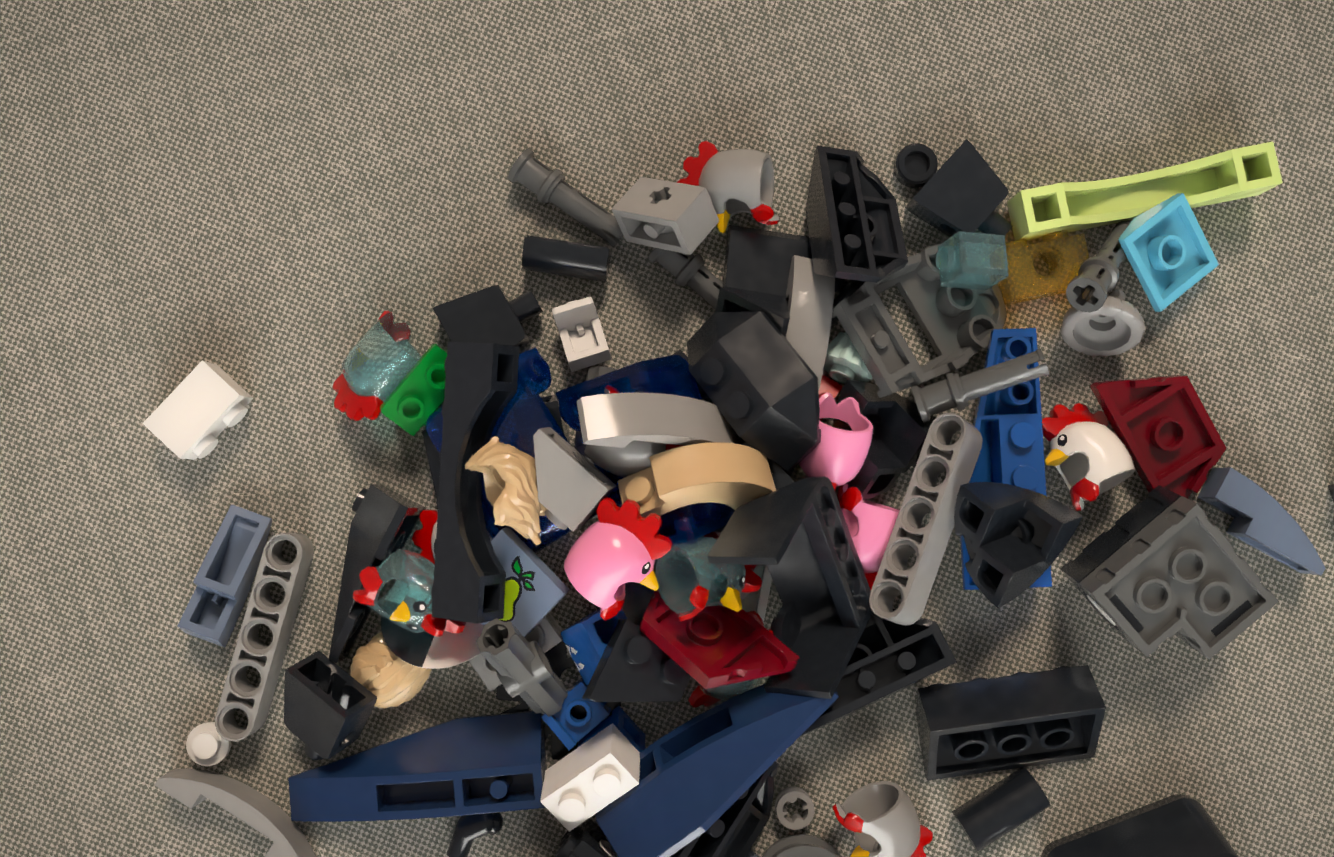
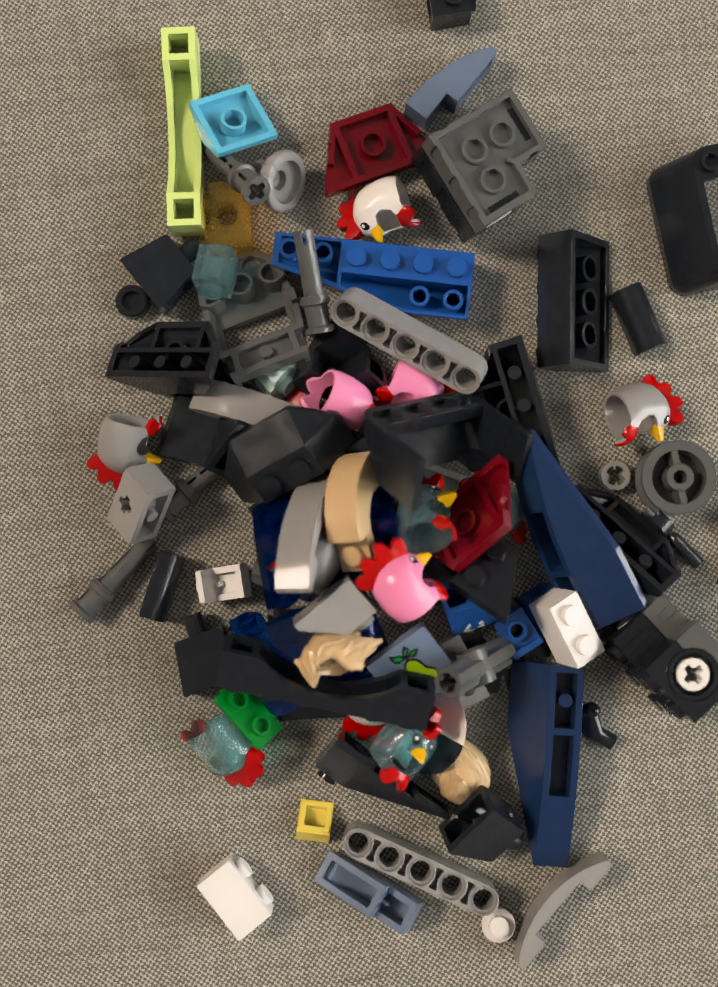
camera: 80 degrees left, 0 degrees up
(305, 494) = (314, 820): none -> light yellow slope
(1010, 536) = (431, 278): black brick -> none

